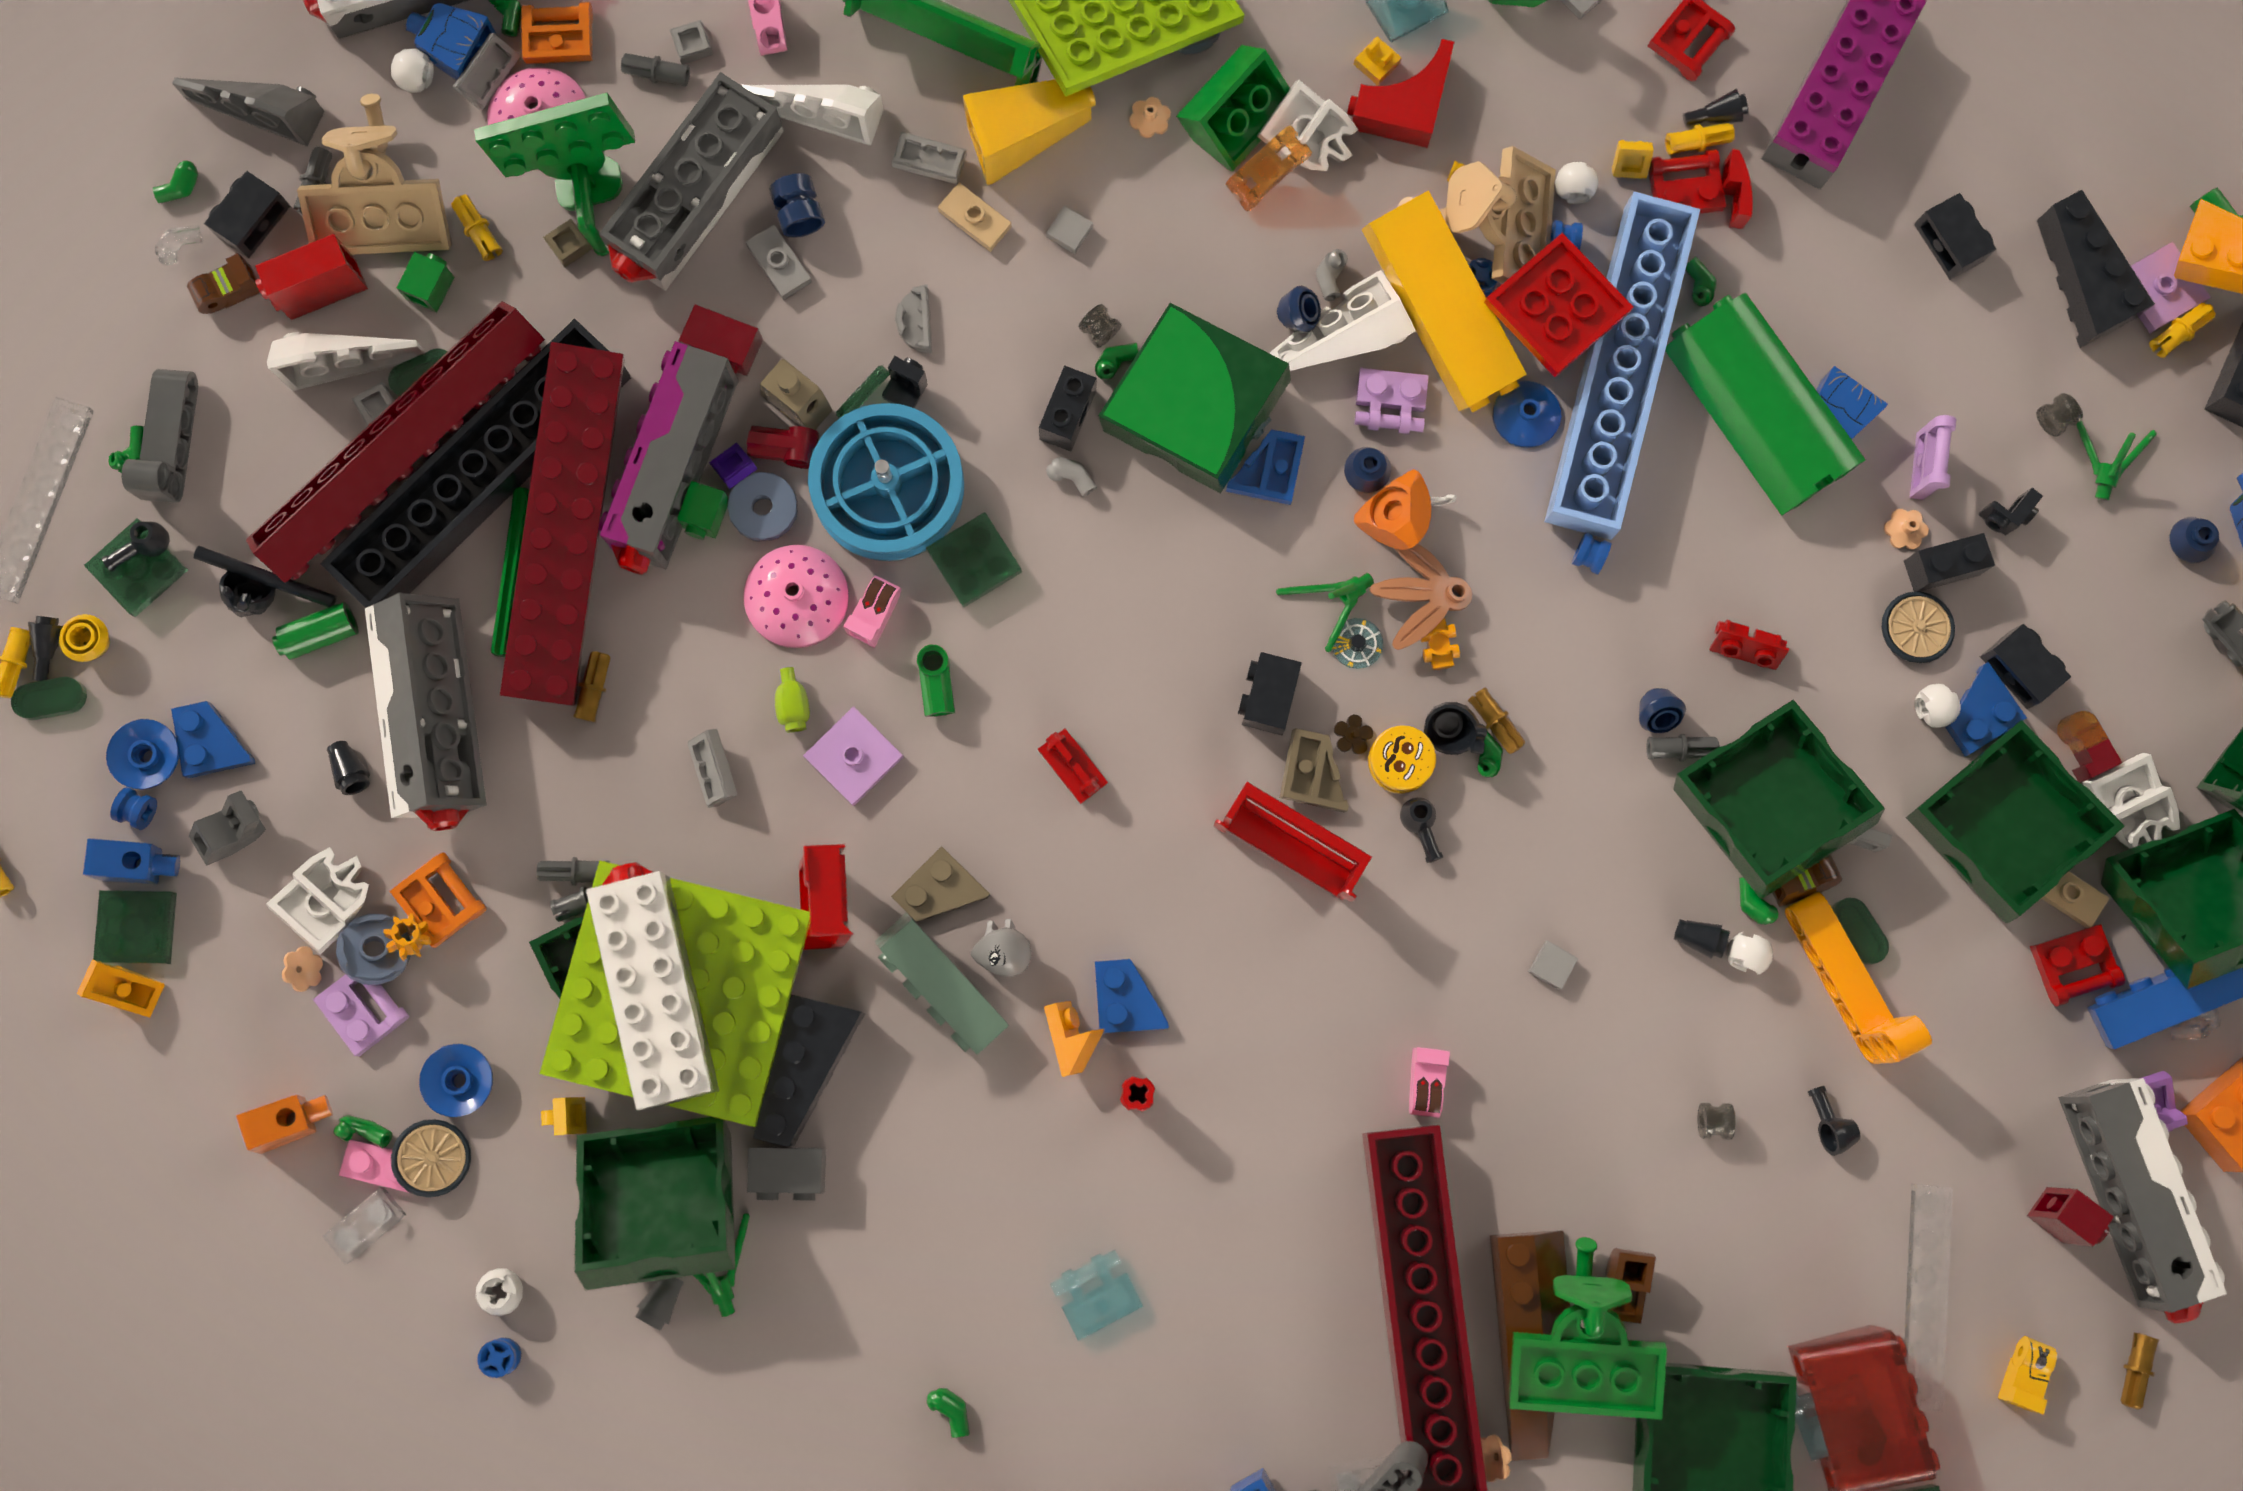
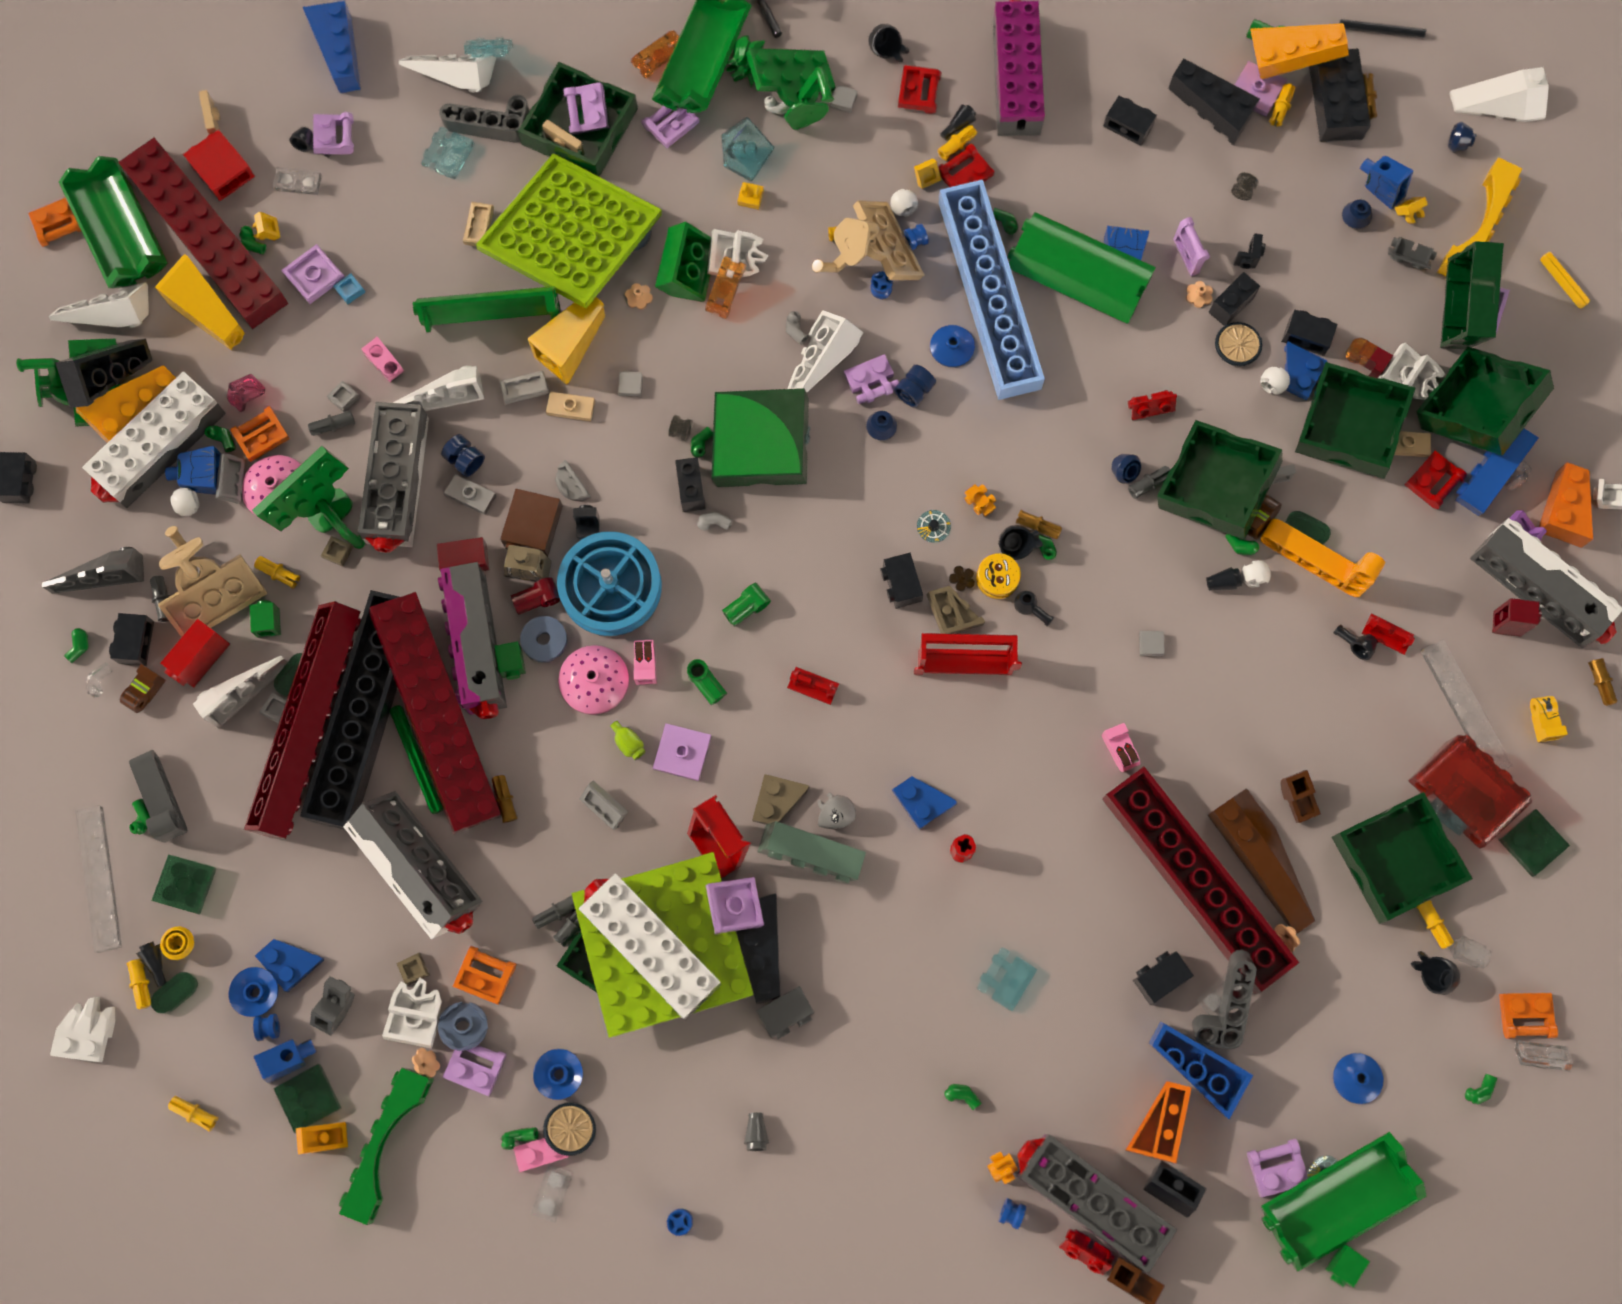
camera: 25 degrees left, 5 degrees down
(135, 1089) = (364, 1194): none -> green arch
(151, 546) = (185, 867): black bar -> none
(245, 595) = (261, 859): black piece -> none
(263, 576) = (268, 844): black bar -> none
(267, 1126) = (462, 1168): orange torso -> none
(315, 631) = (317, 860): green brick -> none
(347, 769) = (384, 930): black cone -> none
(356, 839) = (413, 969): none -> dark tan tile
(407, 926) = (479, 999): light orange gear -> none
(487, 1298) = (665, 1189): white piece -> none
(567, 1116) = (636, 1057): yellow tile -> none
(654, 1203) = (721, 1073): dark green tile -> none
(721, 1287) = (786, 1103): green plant -> none
(733, 465) = (512, 624): dark purple tile -> none
(795, 998) = (734, 905): none -> lavender plate
(834, 344) = (531, 521): none -> reddish brown brick
(864, 391) = (565, 540): clear green tile -> none
(974, 560) = (686, 600): clear green plate -> none
(1058, 609) = (751, 601): none -> green piece
(1071, 1048) = (909, 845): light orange slope -> none
(1271, 469) = (827, 455): blue wing -> none
(1299, 309) = (790, 357): dark blue cone -> none
(1300, 1412) = (1162, 977): none -> black brick
(1348, 593) = (911, 500): green plant -> none
(1400, 512) = (915, 438): orange hat -> none
(1406, 108) = (784, 213): red arch -> none
(1435, 590) = (959, 470): nougat plant -> none
(1444, 302) = (871, 307): yellow brick -> none
(1447, 439) = (913, 387): none -> dark blue wheel
(1558, 304) = (936, 273): red plate -> none
(1591, 553) = (1035, 402): blue wheel -> none
(1591, 1366) = (1308, 851): green plate -> none
(1716, 1121) = (1293, 677): clear smoke wheel -> none
(1737, 184) = (996, 157): red slope -> none
(1882, 1136) = (1388, 634): none -> red hinge
(2108, 473) = (1289, 204): green plant -> none

